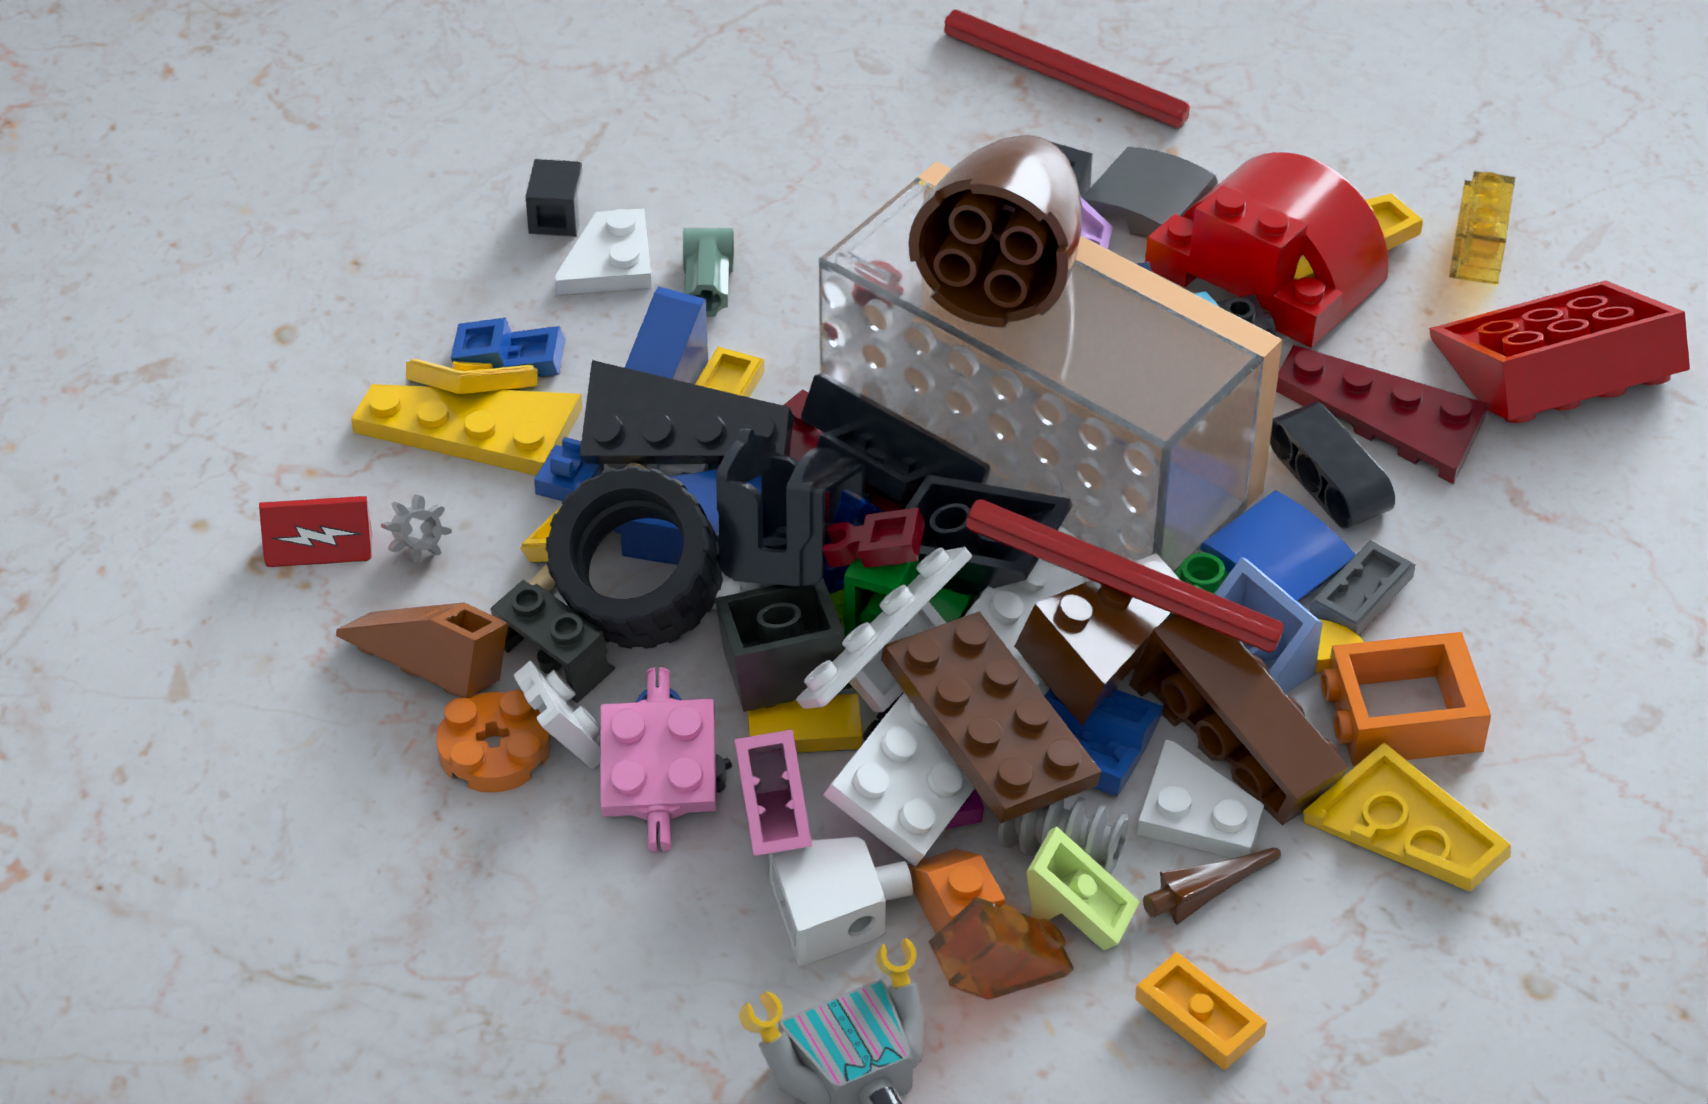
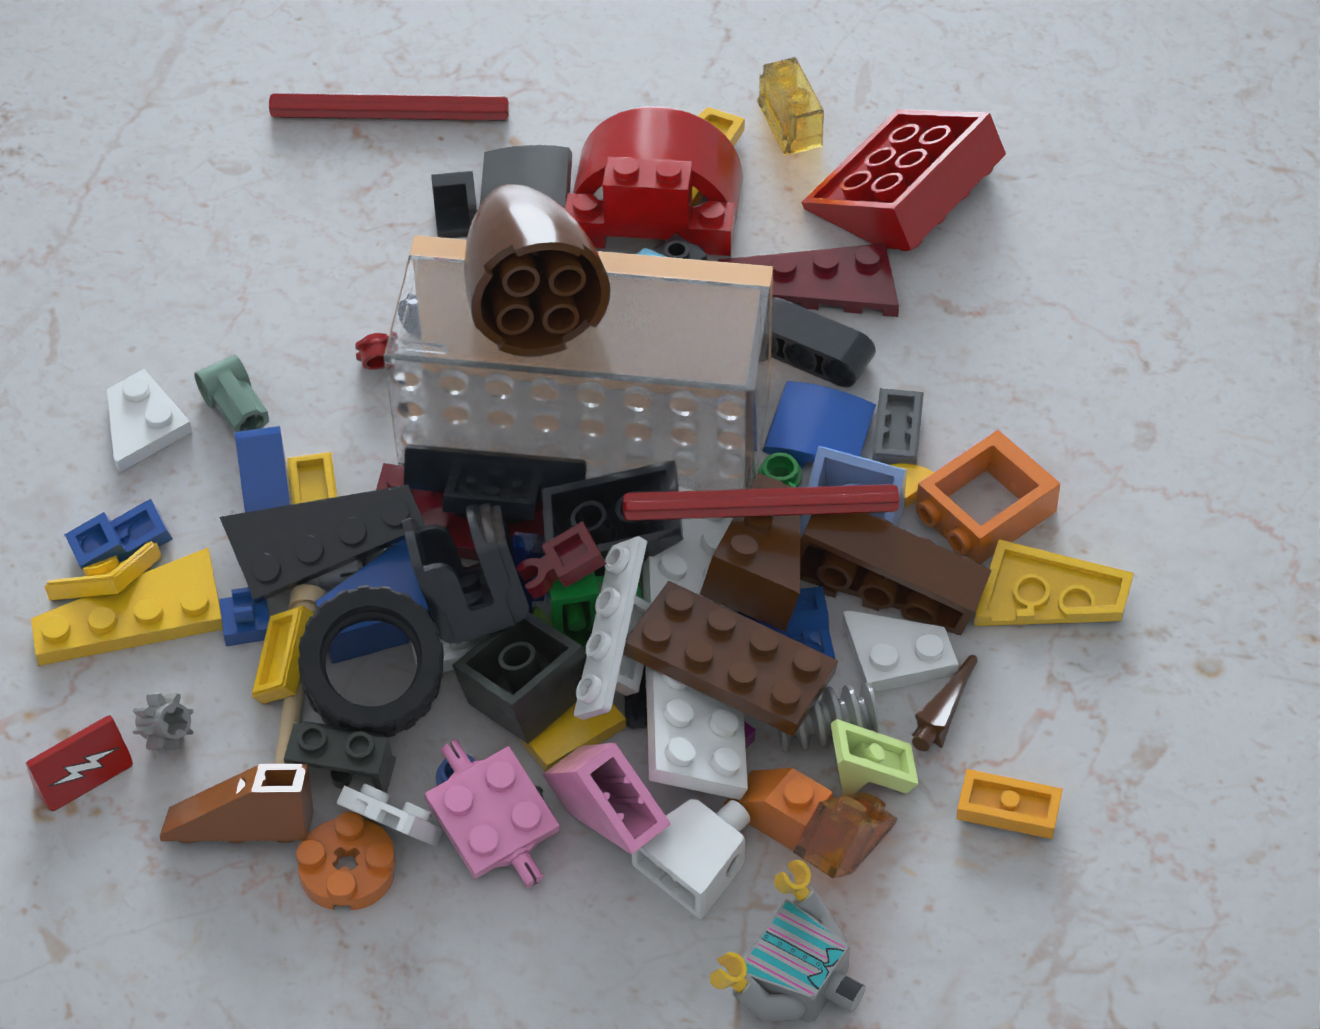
camera: 30 degrees left, 5 degrees up
(553, 197) = (66, 391): black panel -> none

